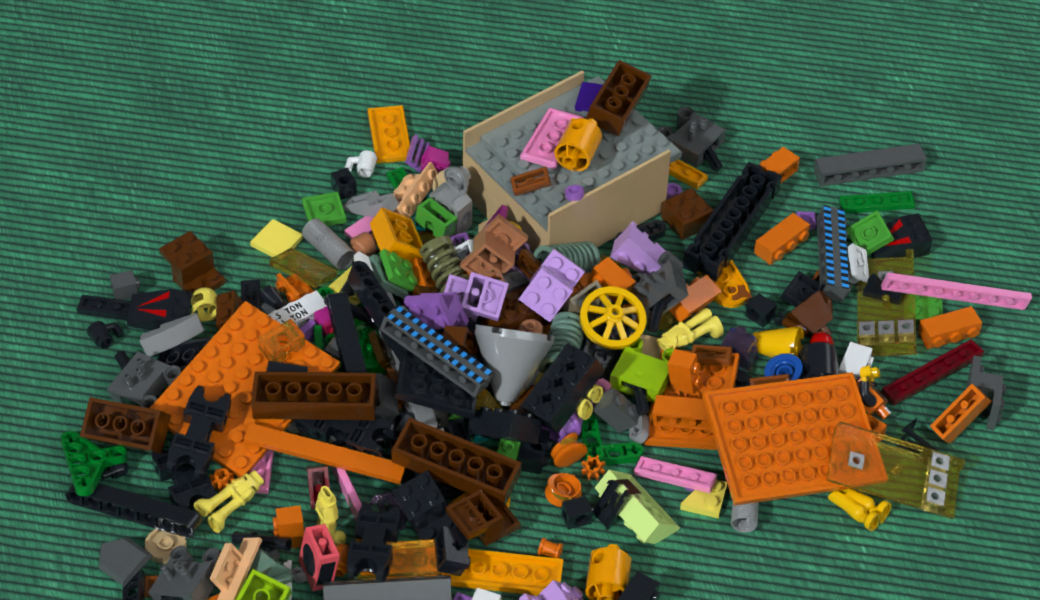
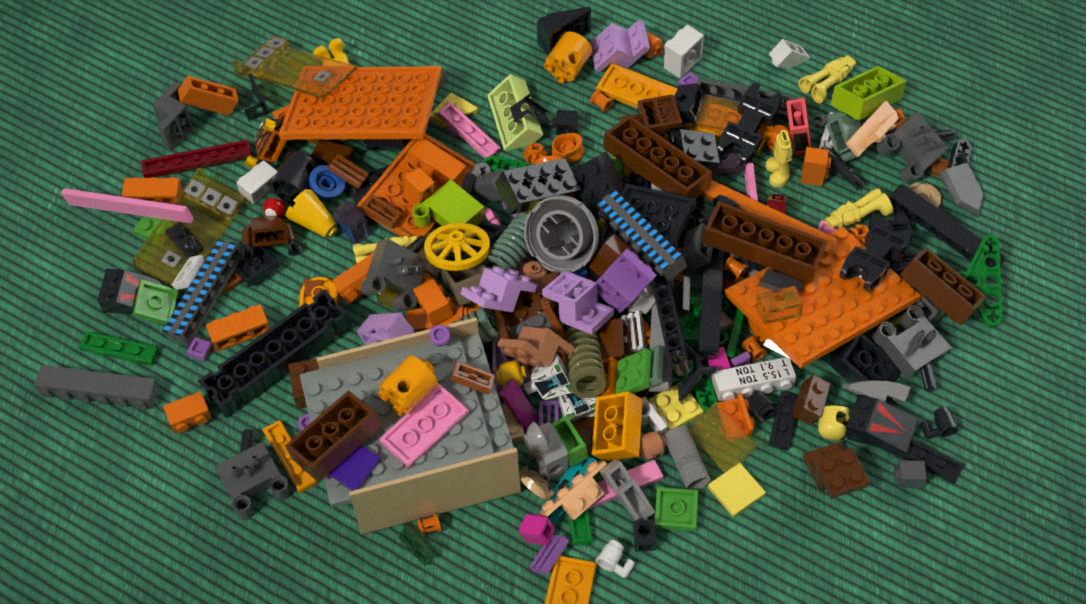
camera: 155 degrees left, 10 degrees up
(760, 310) = (305, 259): black brick -> none

